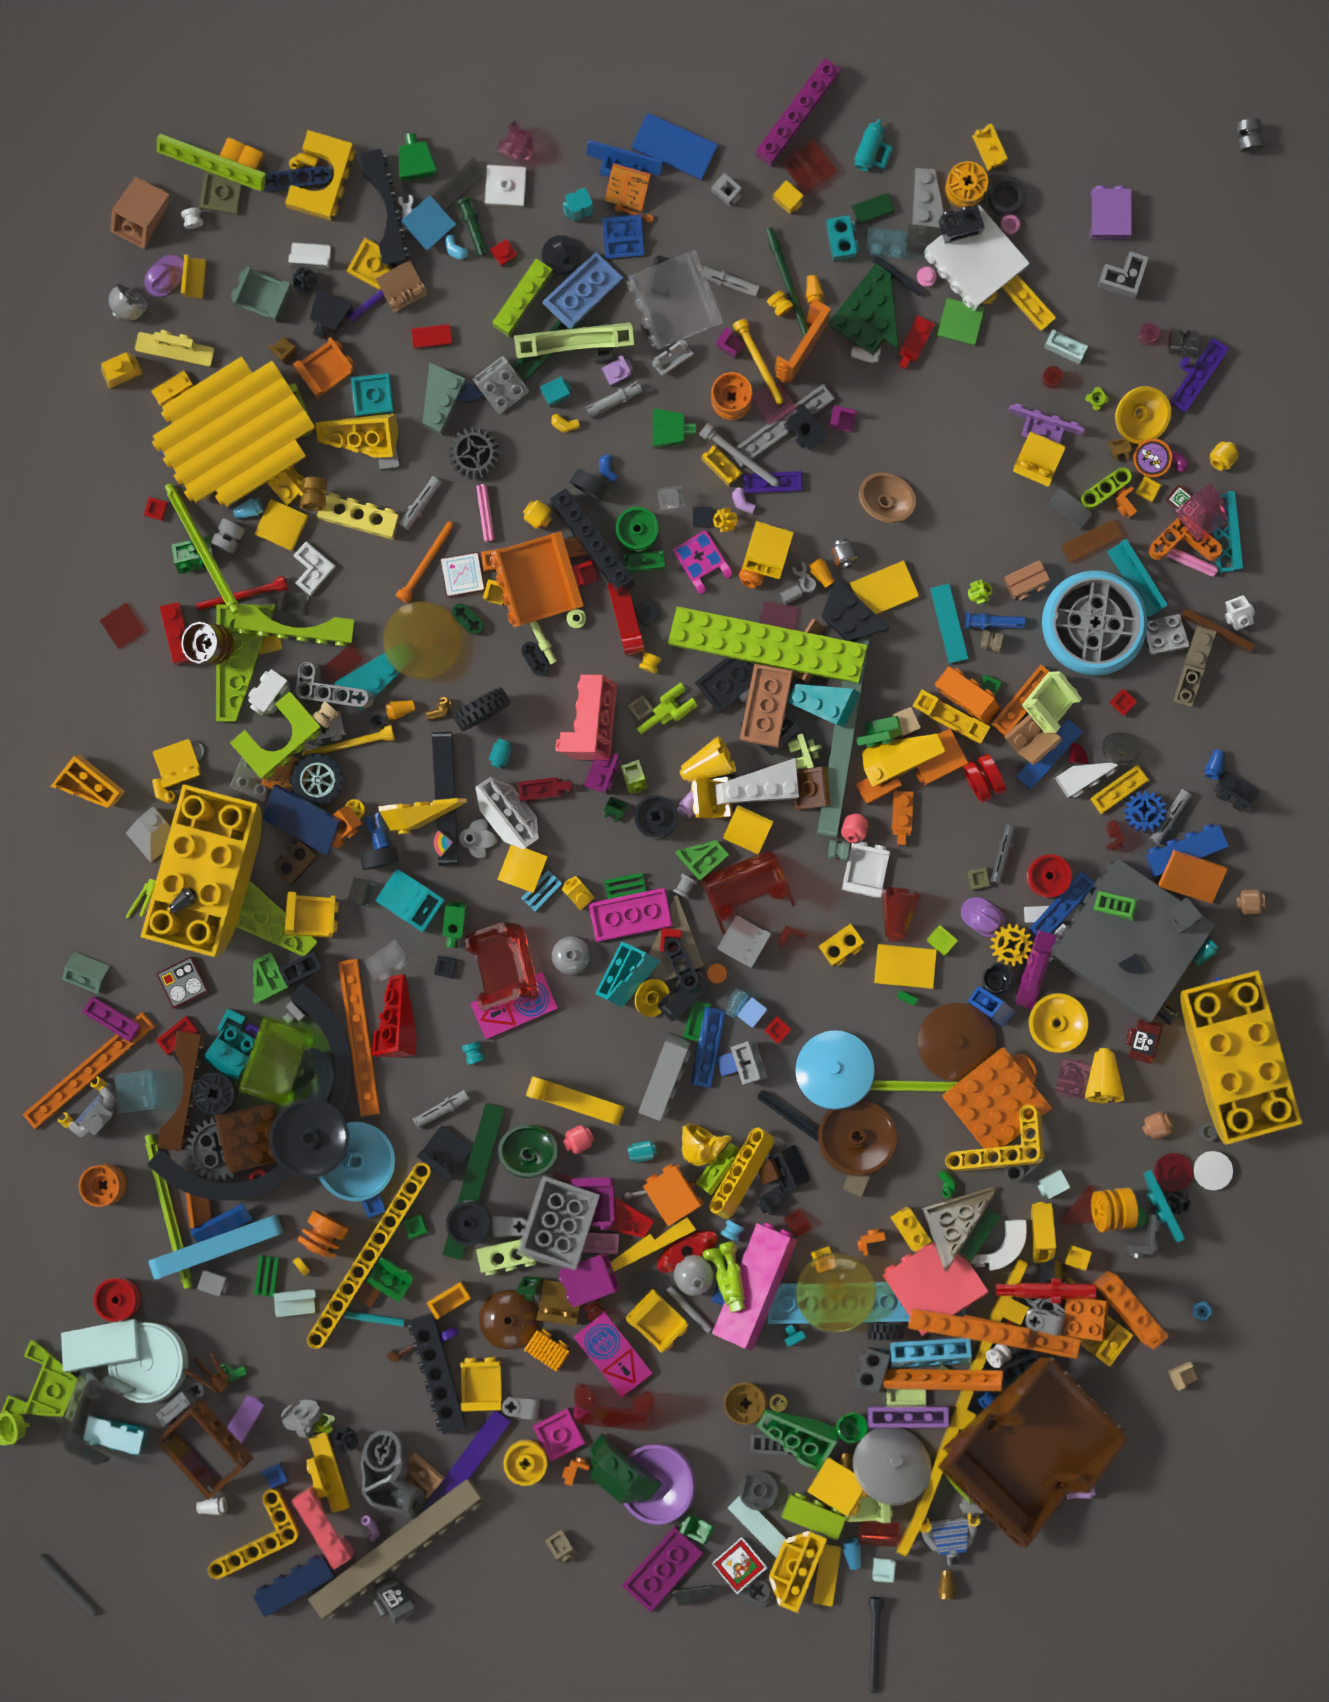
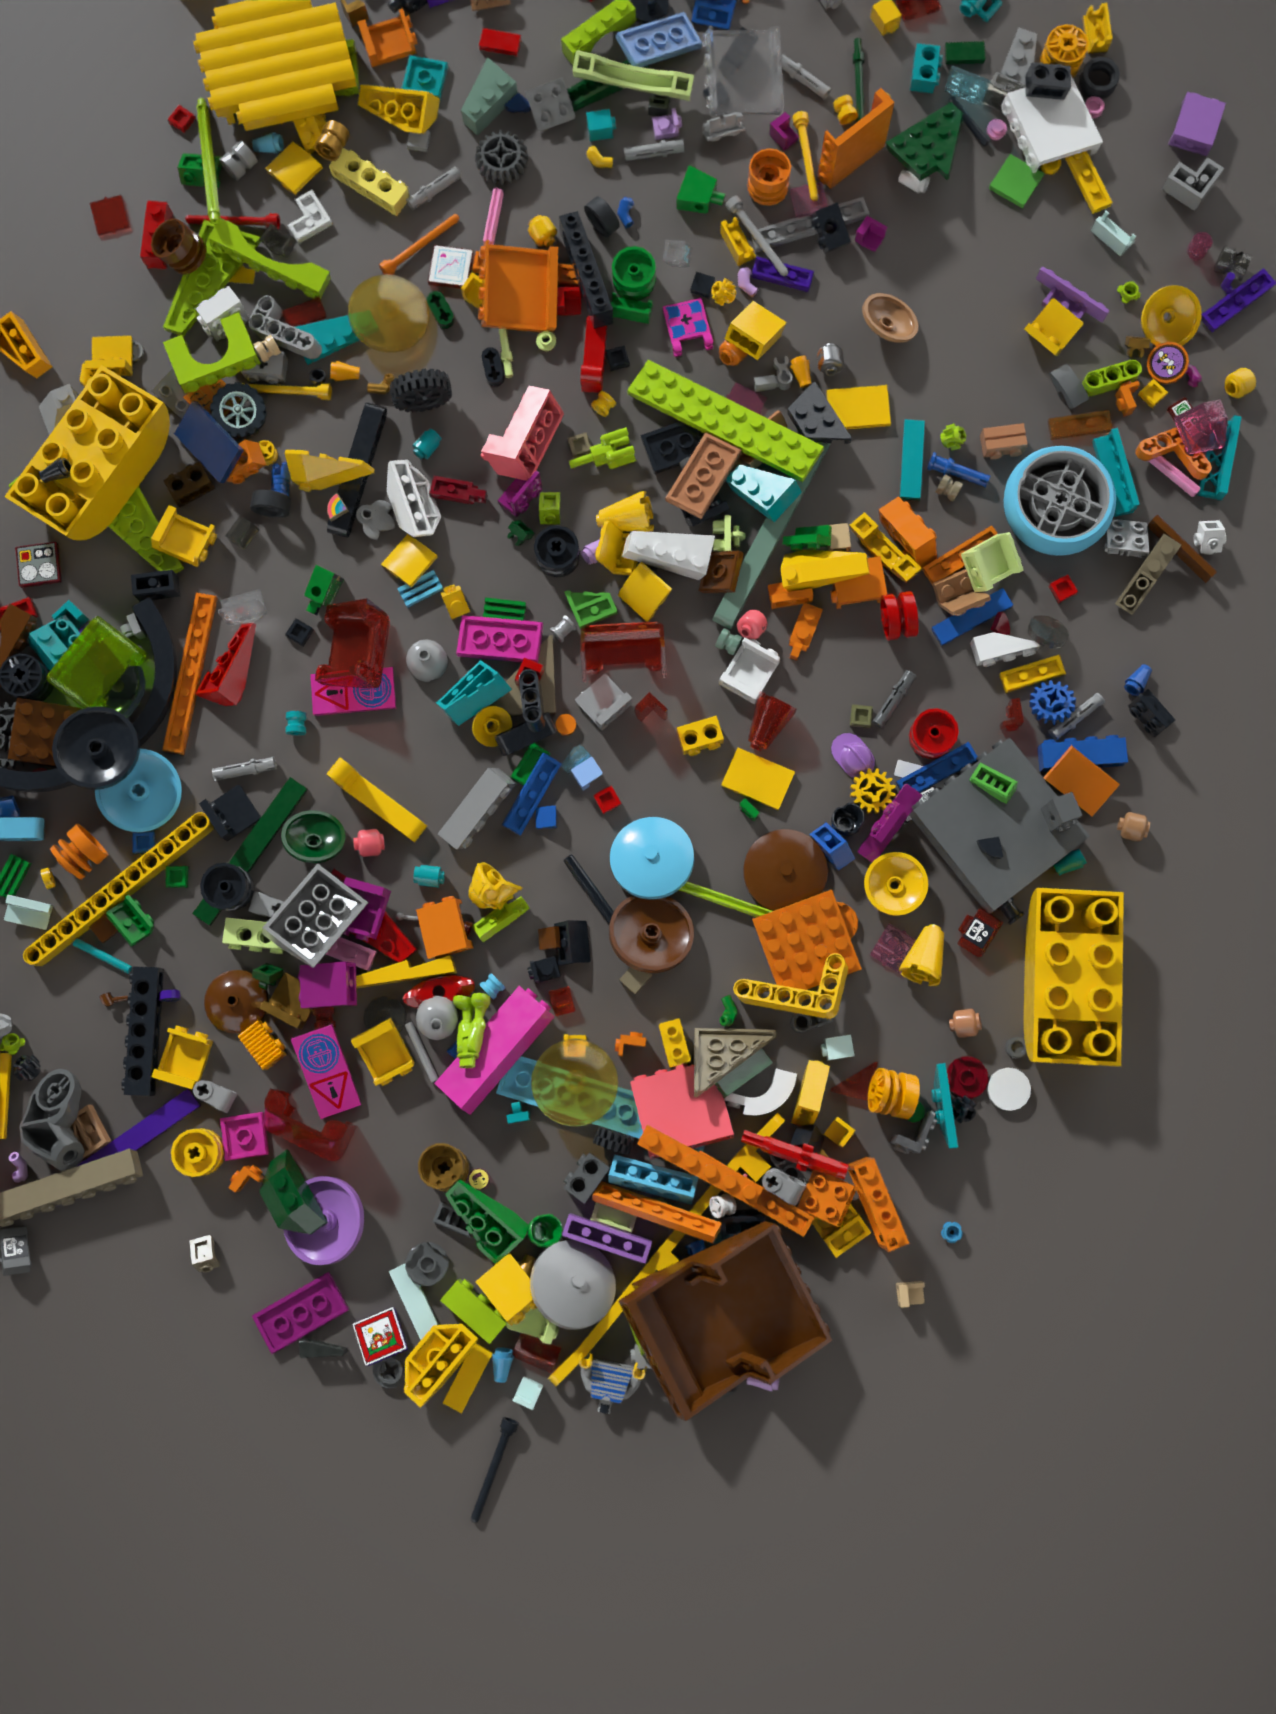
camera: 25 degrees right, 5 degrees down
(267, 978) = (119, 586): bright green wing -> none
(410, 900) = (287, 556): teal slope -> none
(449, 1300) = (181, 960): light orange panel -> none
(697, 1529) = (349, 1282): green bracket -> none
(741, 1173) = (521, 930): yellow beam -> none
(749, 1062) = (567, 821): light grey brick -> none
(915, 341) = (966, 185): red hinge -> none
(941, 940) = (804, 764): lime panel -> none
(946, 1586) = (588, 1434): pearl gold cone -> none
(991, 684) = (939, 531): green tile -> none
(1052, 380) = (1090, 257): clear red wheel -> none

